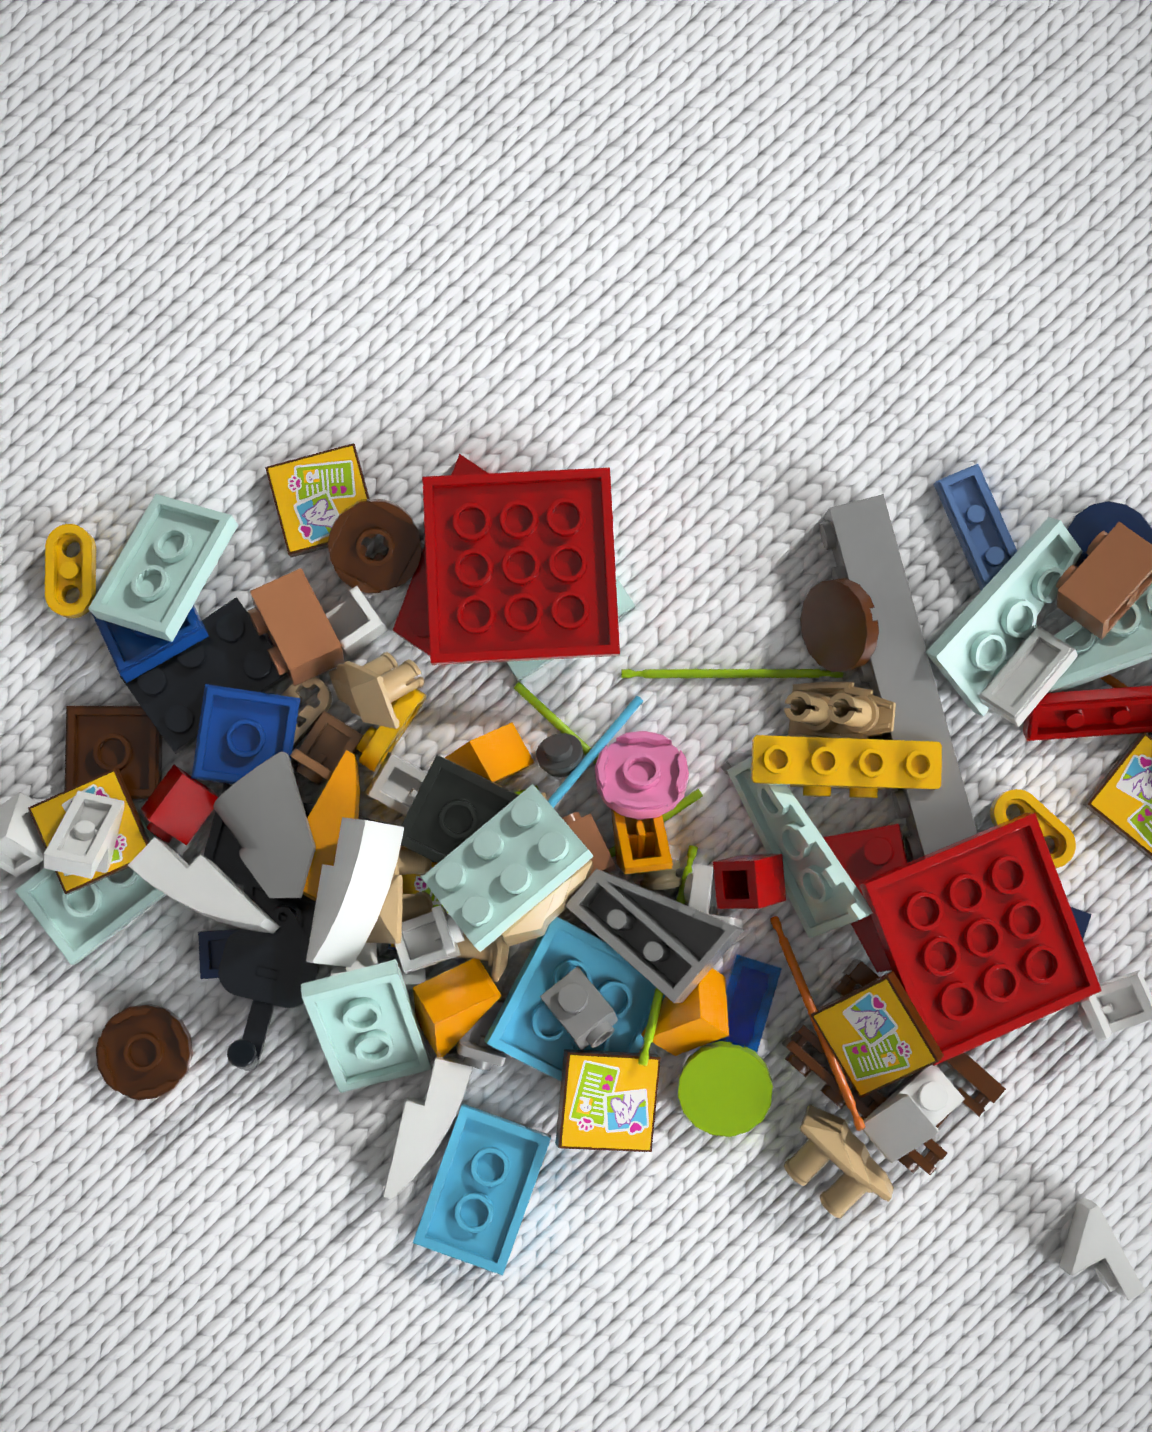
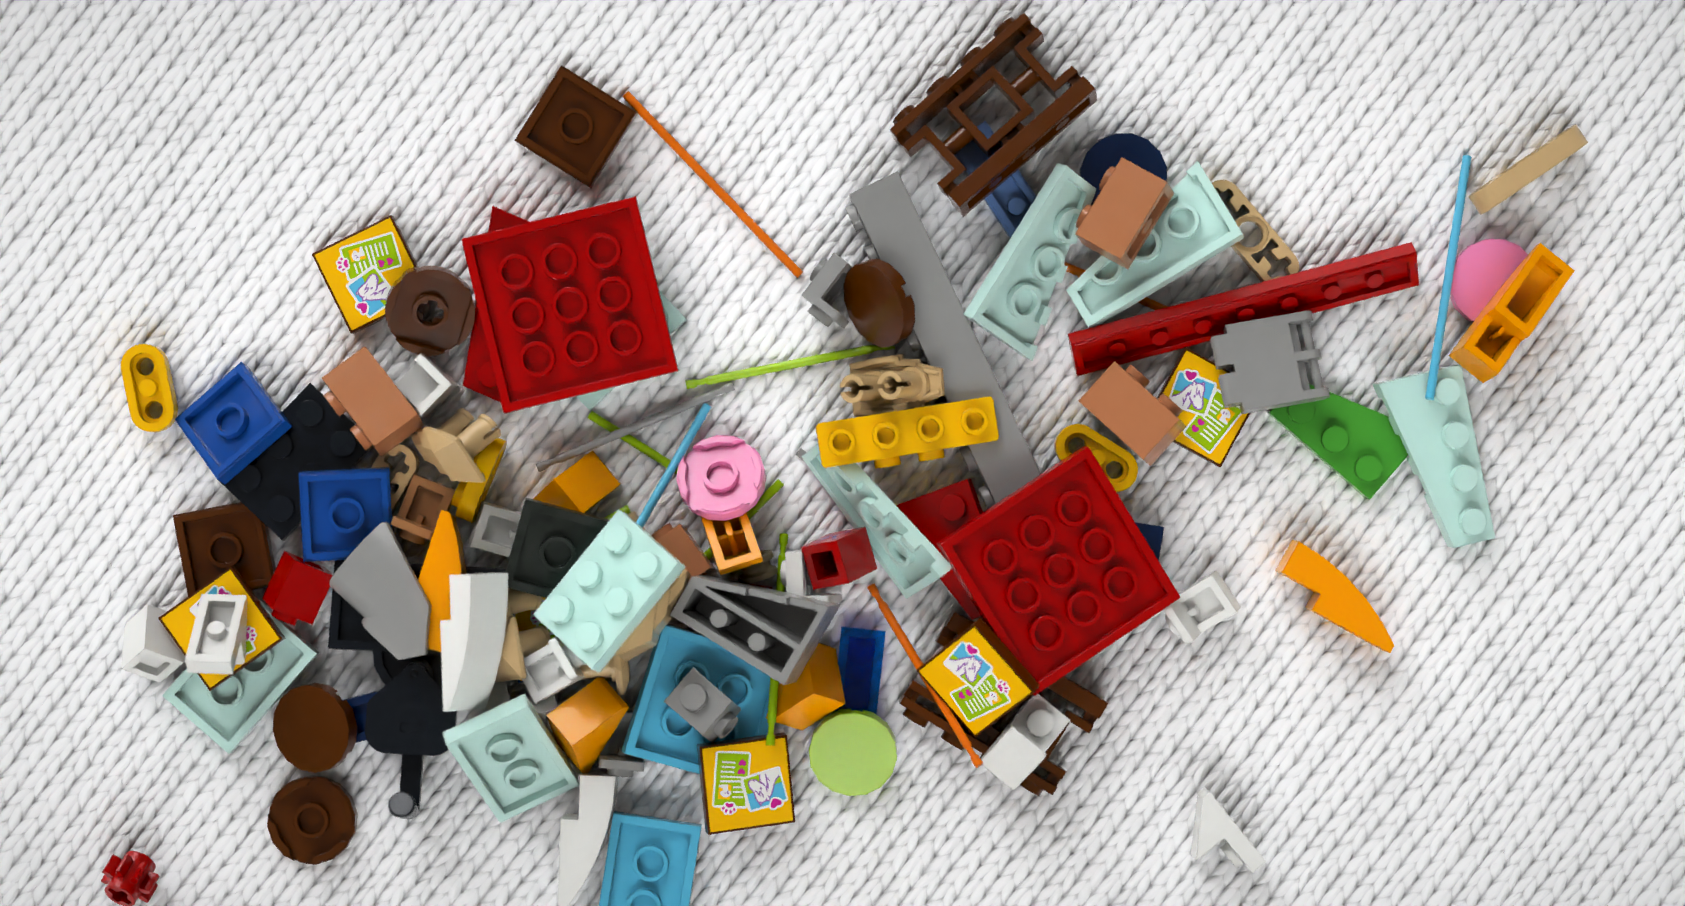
camera: 10 degrees left, 5 degrees up
(163, 567) = (236, 369): light aqua plate -> none
(166, 954) = (314, 727): none -> reddish brown tile
(200, 887) = (332, 661): white slope -> none
(559, 392) = (576, 126): none -> reddish brown tile
(559, 754) = (641, 473): dark grey plate -> none
(561, 706) = (635, 426): none -> light grey piece
(688, 478) = (716, 188): none -> orange axle
(784, 600) = (824, 289): none -> light grey bracket
(834, 1141) = (960, 780): tan connector -> none
(1008, 486) = (1015, 139): none -> reddish brown fence
(1028, 676) = (1064, 317): white tile -> none
(1083, 787) = (1133, 412): none -> nougat brick

